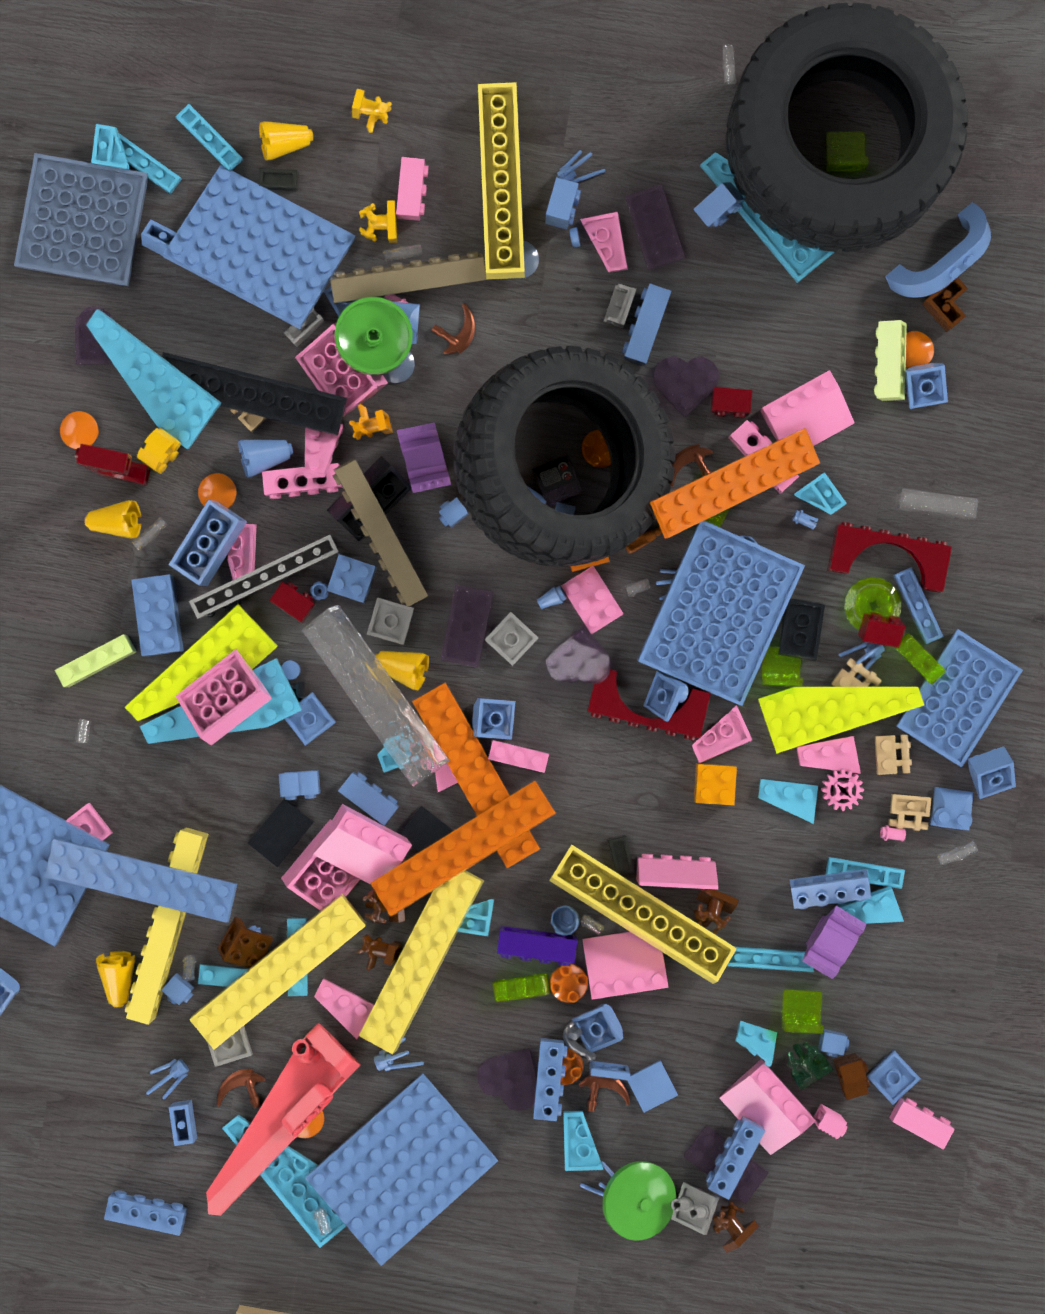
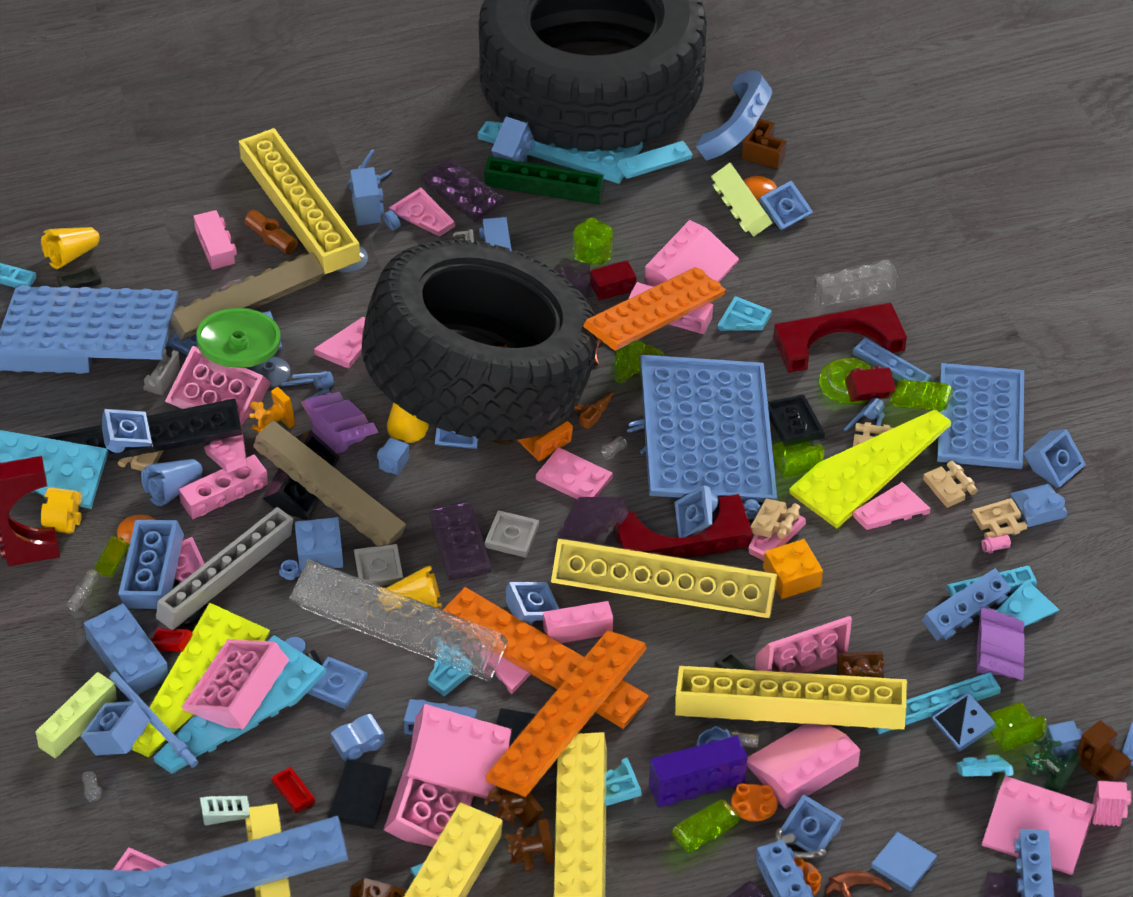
camera: 25 degrees left, 40 degrees down
(116, 519) = (39, 586): yellow cone -> none
(116, 694) = (115, 728): none -> medium blue brick
(156, 800) = (224, 802): none -> light aqua slope
(158, 734) = (179, 747): none -> medium blue bar
(181, 517) = (111, 557): none -> clear neon green piece
(197, 627) = (171, 640): none -> red tile
(232, 804) = (293, 790): none -> red tile
(241, 392) = (125, 429): none -> medium blue slope
(292, 601) = (266, 587): dark red brick -> none
(375, 109) = (143, 194): yellow piece -> none
(380, 222) = (194, 273): yellow piece -> none
(432, 399) = (321, 380): none -> medium blue plant
(460, 192) = (271, 232): none -> dark orange piece
(463, 339) = (325, 332): copper piece -> none
(476, 363) = (344, 346): none -> bright pink wing
(552, 597) = (534, 484): medium blue cone -> none
(605, 751) = (664, 578): none -> light yellow brick
(609, 1070) = (848, 853): medium blue tile -> none
(715, 706) = (753, 506): none -> medium blue plate
(722, 726) = (769, 519): none -> tan plate
(728, 256) = (544, 180): none -> dark green brick
(729, 64) = (461, 65): clear axle -> none
(739, 339) = (593, 242): none -> clear neon green brick
(766, 989) = (964, 722): none -> medium blue tile
(791, 797) = (880, 553): medium azure wing -> none
(804, 519) = (740, 340): medium blue pin -> none
(837, 795) = (921, 525): bright pink gear -> none
(841, 272) = (654, 159): none -> medium azure plate
(957, 853) = (1070, 535): clear pin -> none

